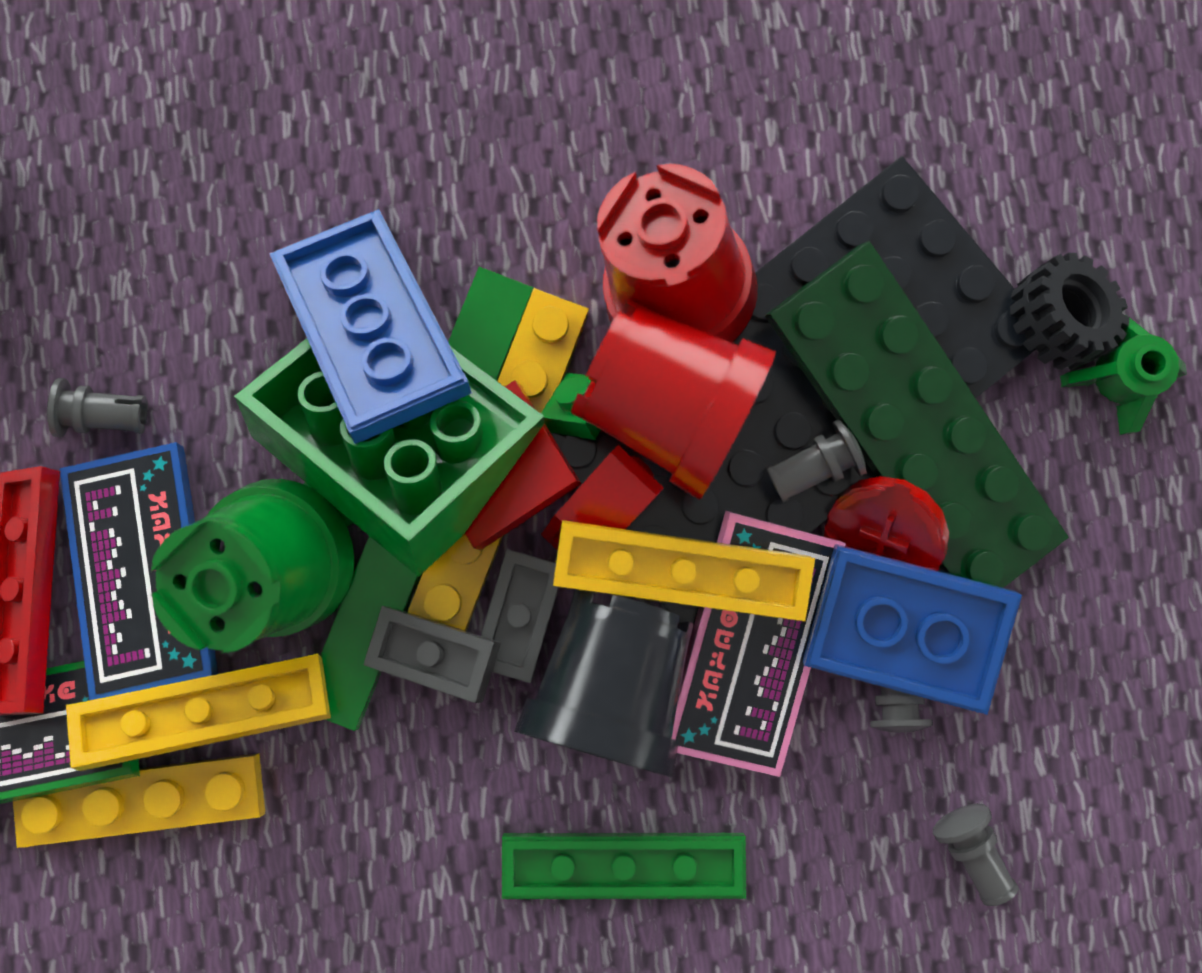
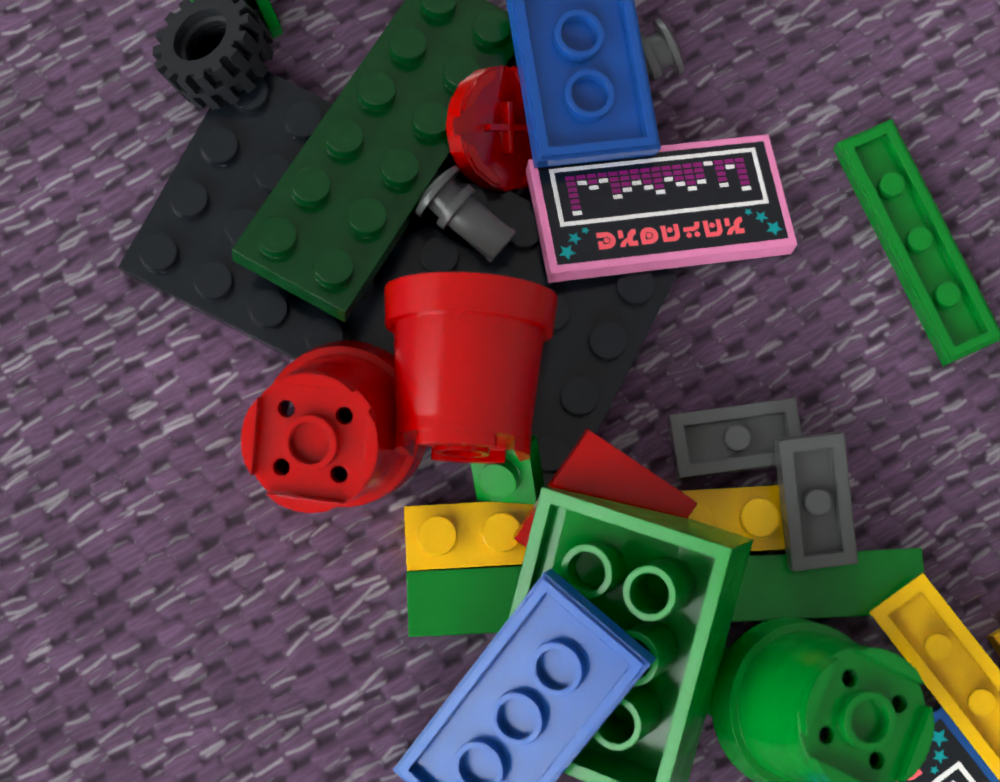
camera: 115 degrees left, 5 degrees down
(609, 496) = (601, 397): red slope -> none
(613, 683) = (768, 312): black piece -> none
(683, 570) = (629, 292): yellow plate -> none

